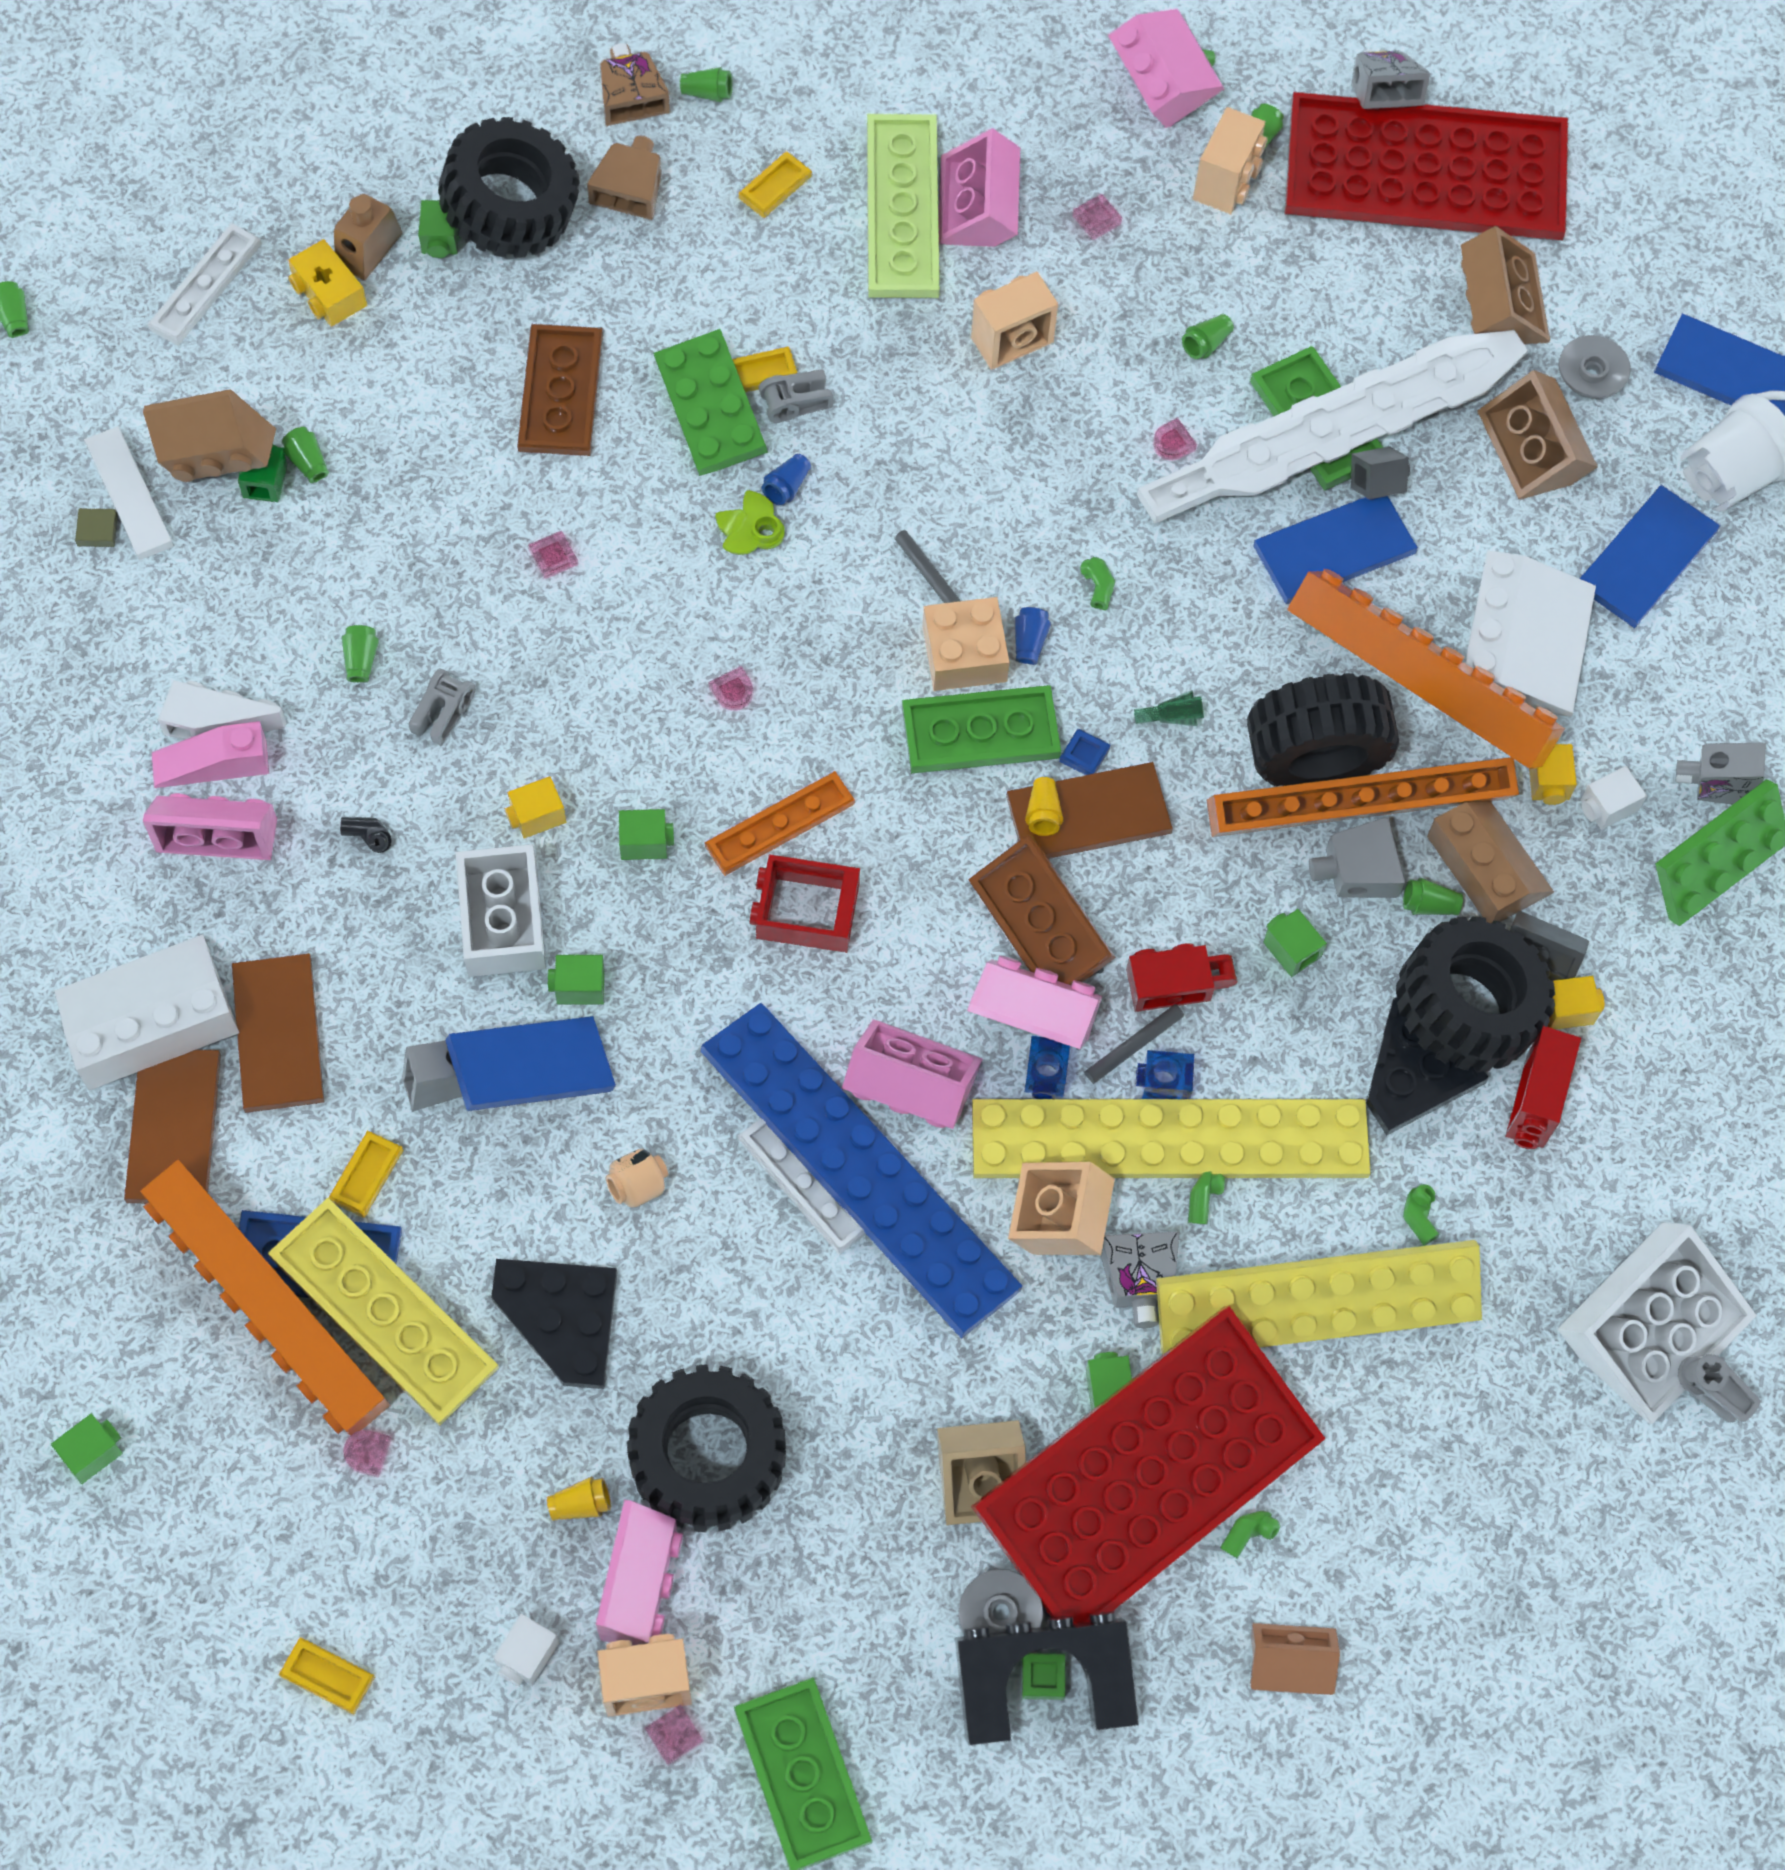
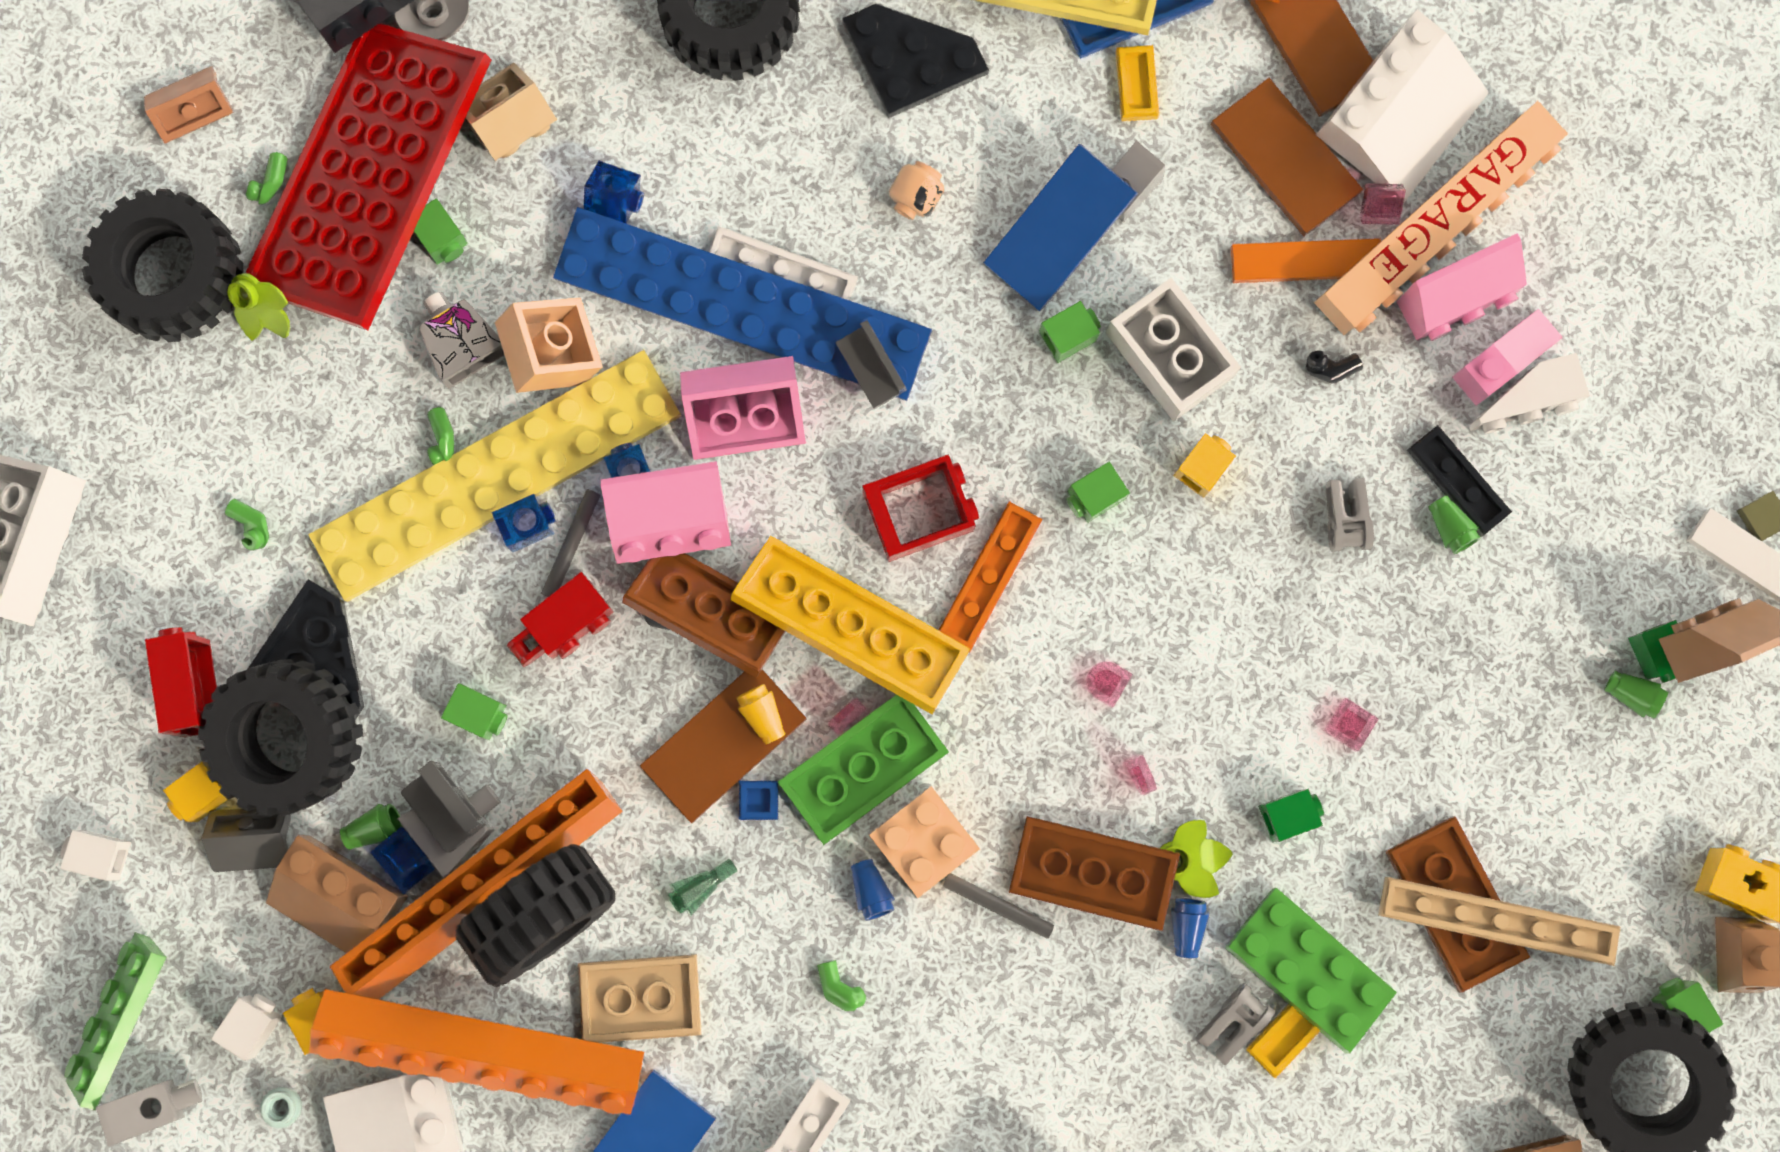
camera: 150 degrees right, 15 degrees up
(182, 897) = (1440, 218): none -> light nougat brick
(225, 939) = (1382, 203): none -> clear pink tile
(325, 933) = (1297, 259): none -> orange tile
(326, 687) = (1459, 480): none -> black tile
(539, 356) = (1499, 921): none -> tan tile
(649, 511) = (1292, 815): none -> green brick
(752, 606) = (1140, 774): none -> clear pink tile
(776, 1035) = (871, 365): none -> dark grey panel
(838, 553) = (1094, 873): none -> dark orange tile
(926, 840) = (850, 624): none -> yellow plate
(939, 1331) = (613, 192): none -> clear blue brick
(972, 771) = (846, 716): none -> clear pink tile
(1265, 653) = (639, 998): none -> tan tile
(1323, 1407) = (258, 306): none -> lime plate
(1330, 1295) = (292, 394): light yellow plate -> none
(1359, 866) = (442, 807): none -> dark grey panel
(1417, 851) = (402, 860): none -> clear blue brick
(1420, 1443) = (129, 232): none -> black tyre
(1617, 720) = (269, 1111): none -> light aqua plate
(1688, 999) = (94, 855): none -> white brick

